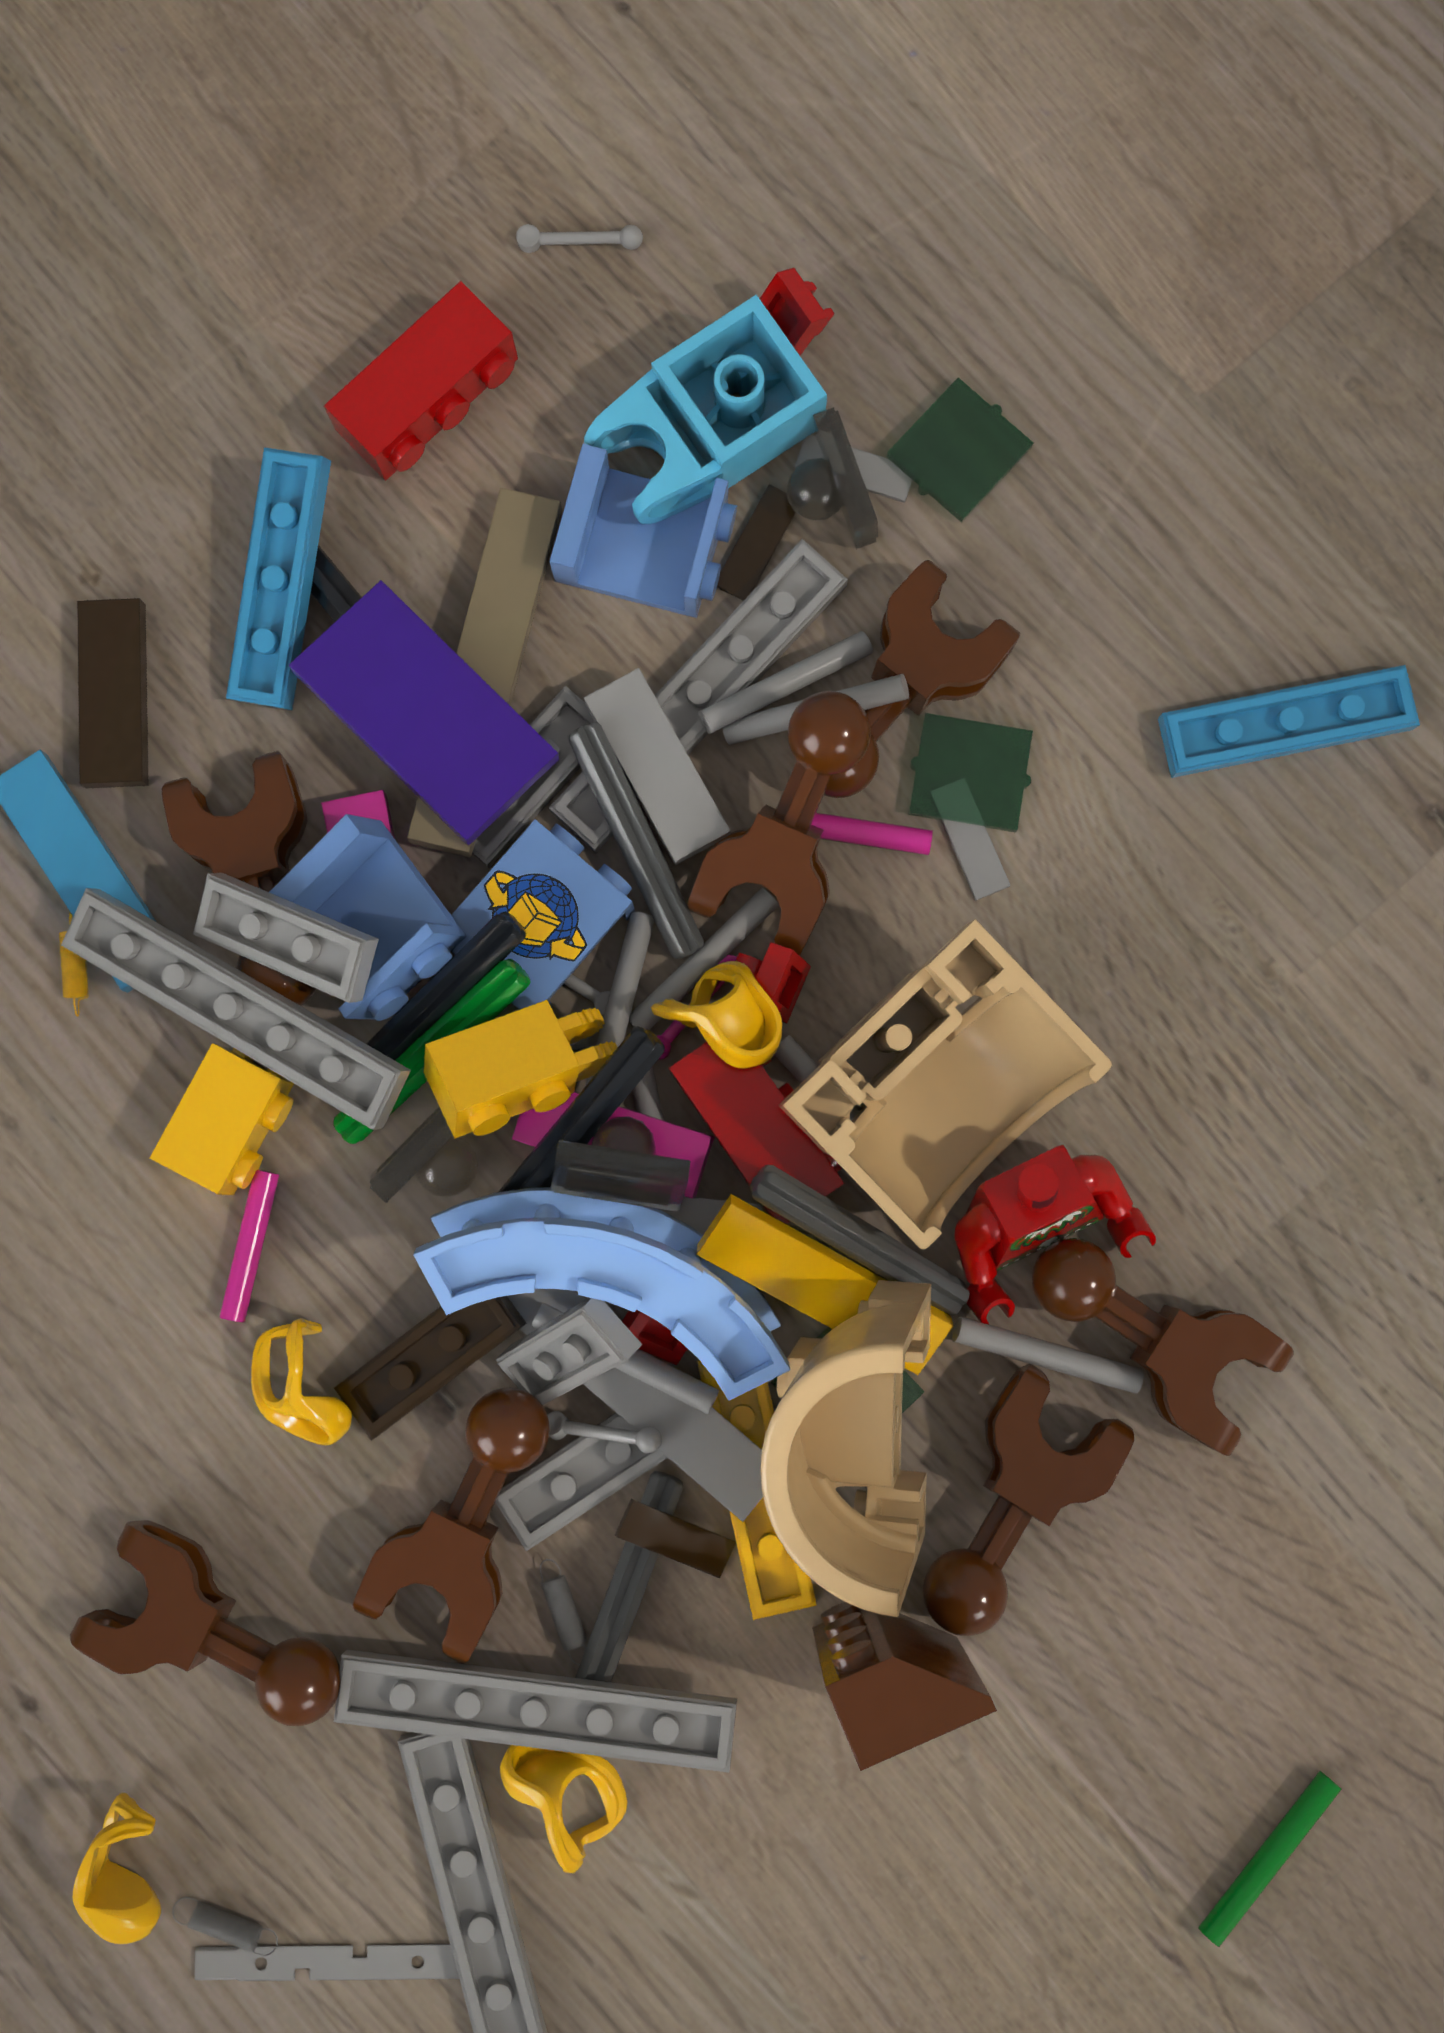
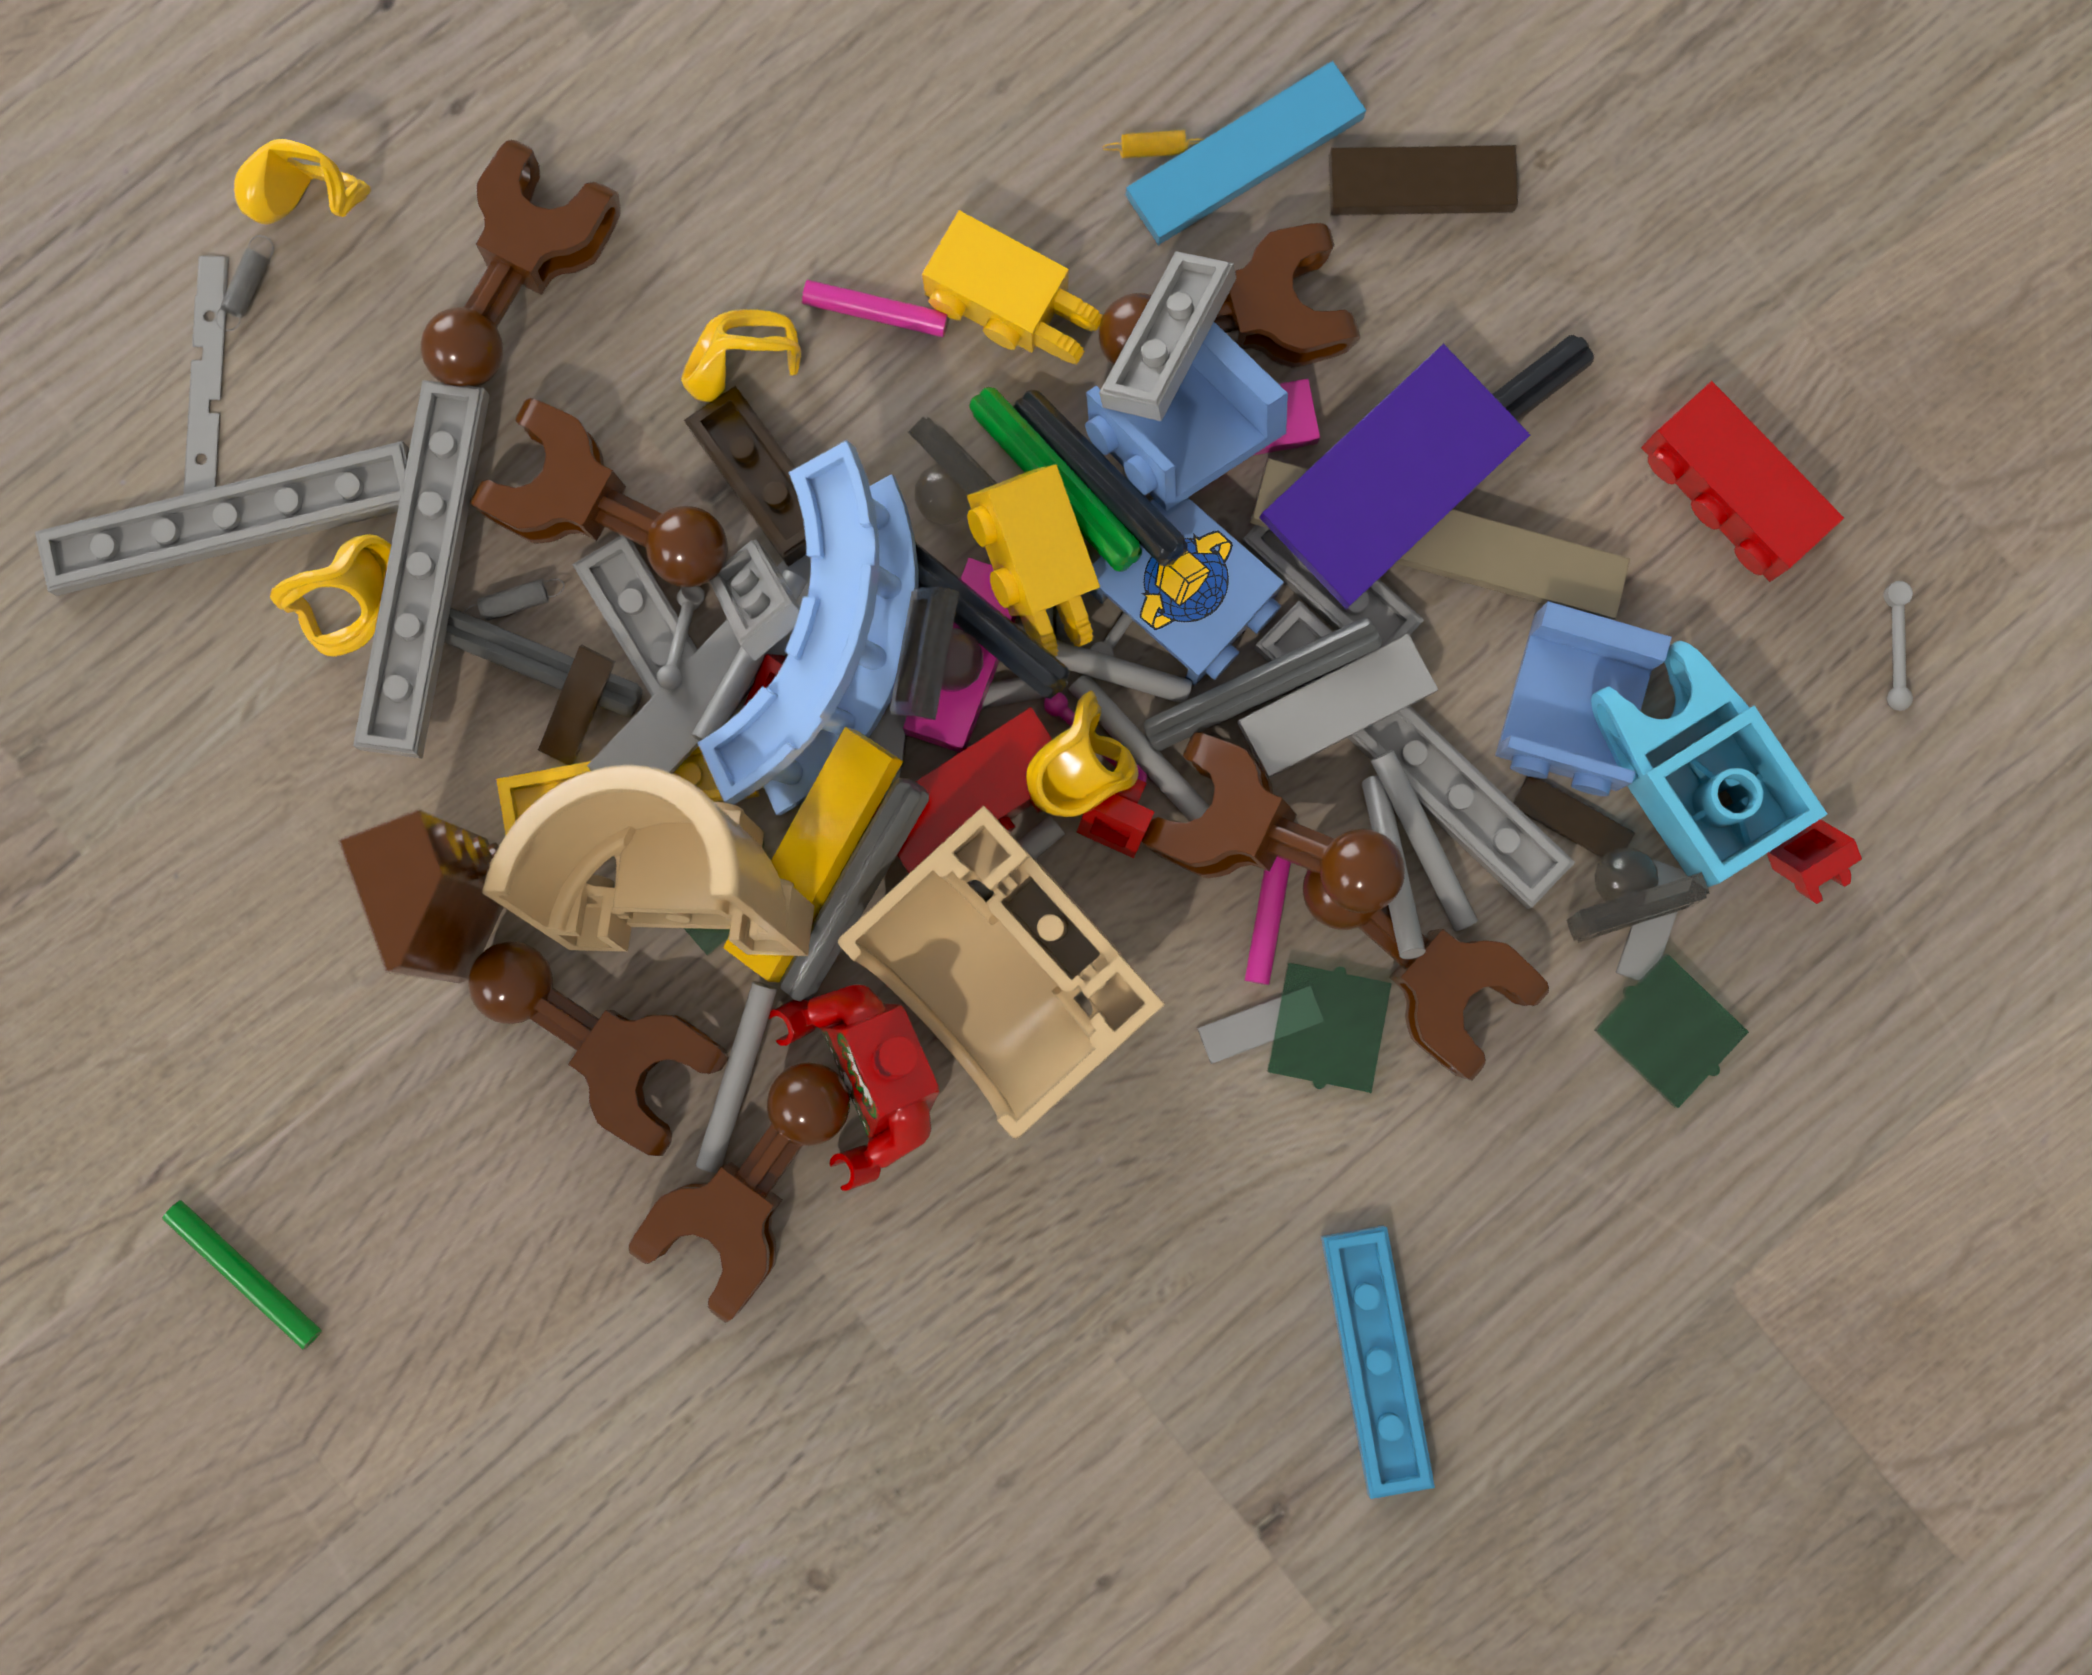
camera: 90 degrees right, 0 degrees up
(236, 1008) = (1100, 290): light grey tile -> none
(278, 577) = (1536, 337): dark azure tile -> none

